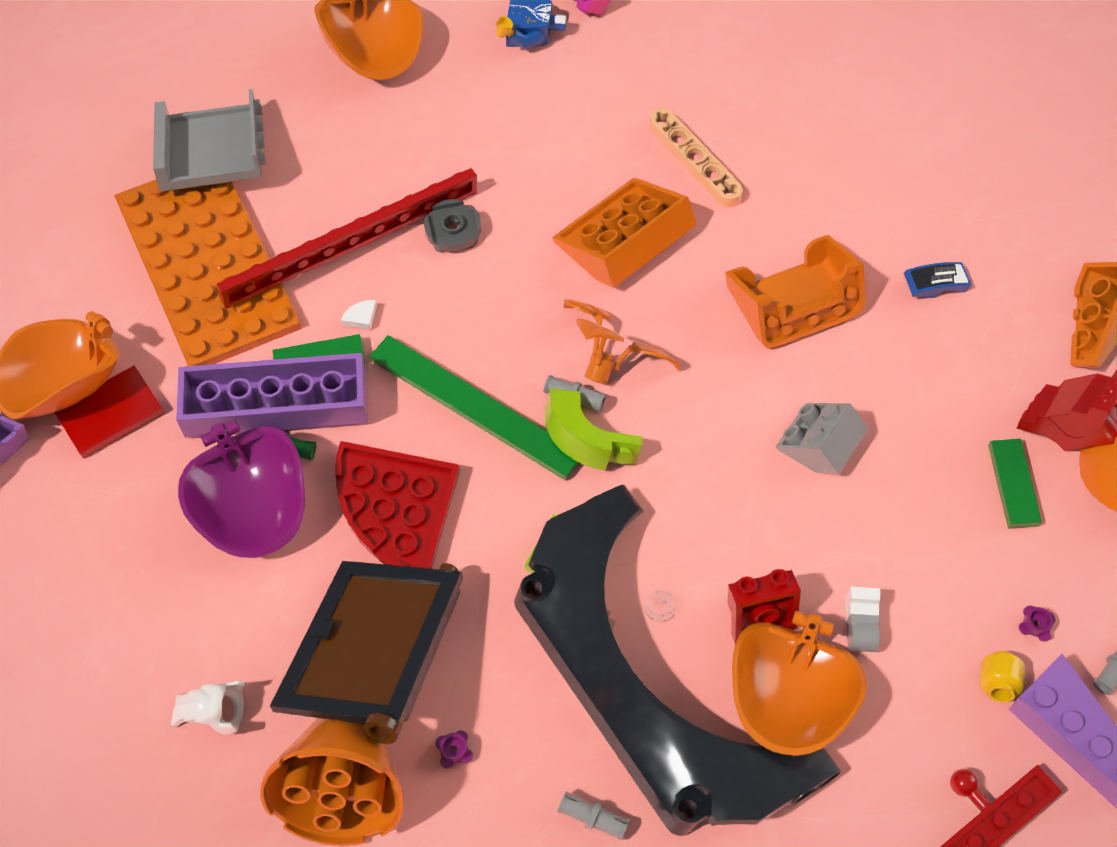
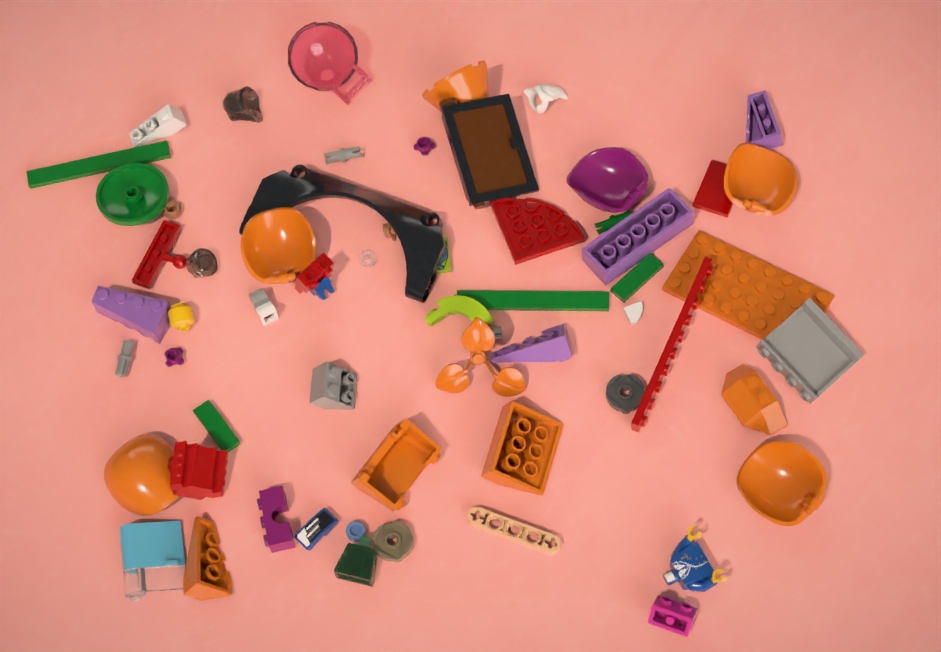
camera: 155 degrees right, 0 degrees up
(317, 143) = (752, 401): none -> orange wedge
(514, 335) = (549, 347): none -> medium lavender wedge
(847, 230) = (388, 531): none -> dark tan plate
(886, 255) = (355, 530): none -> medium blue tile
(906, 212) = (358, 563): none -> clear green torso
(930, 752) = (201, 263): none -> clear smoke hair
(982, 333) = (272, 503): none -> magenta arch

